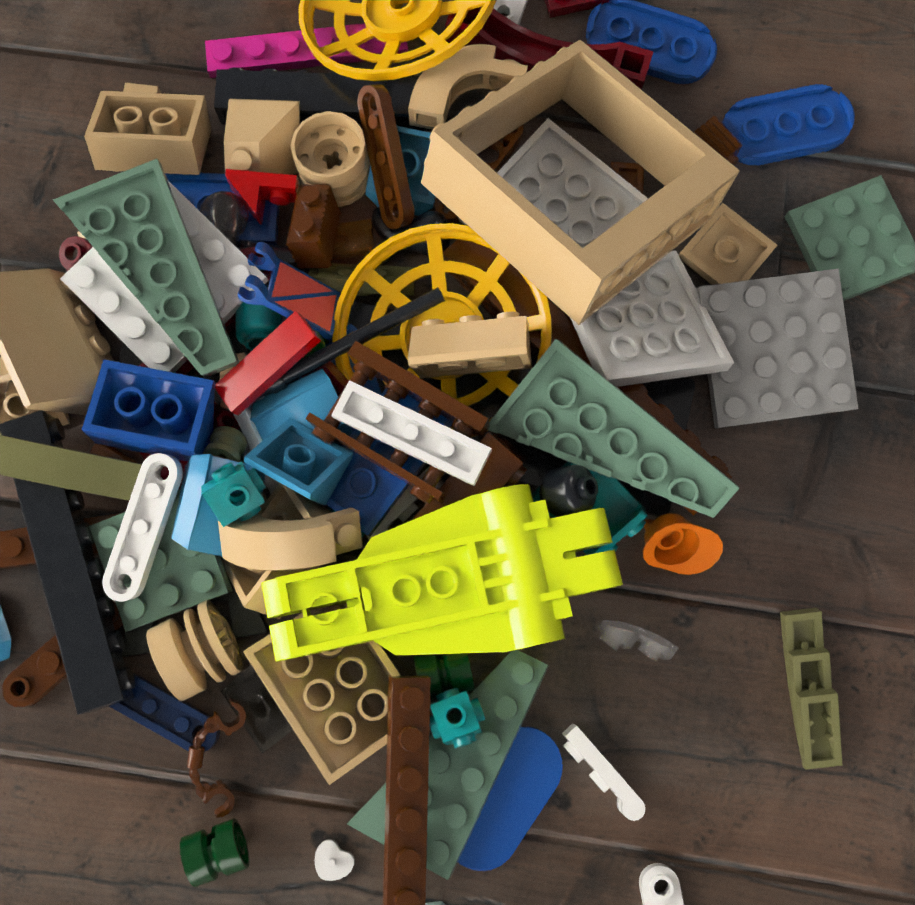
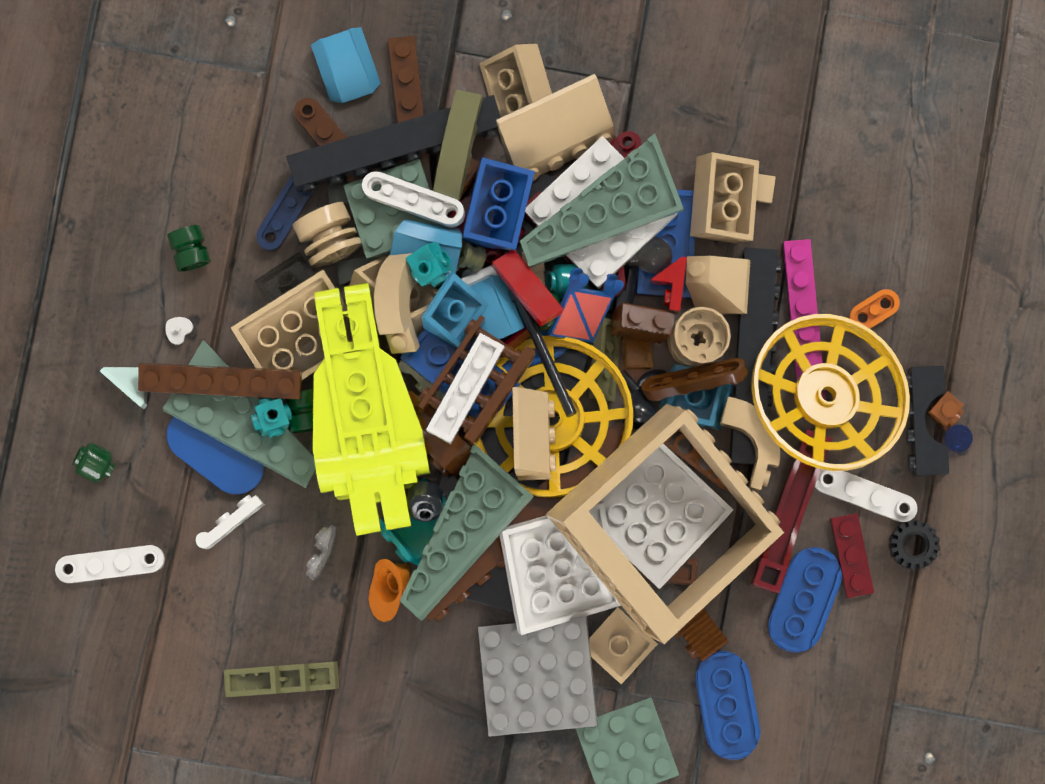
camera: 90 degrees right, 5 degrees up
(196, 755) = (254, 235): reddish brown piece -> none

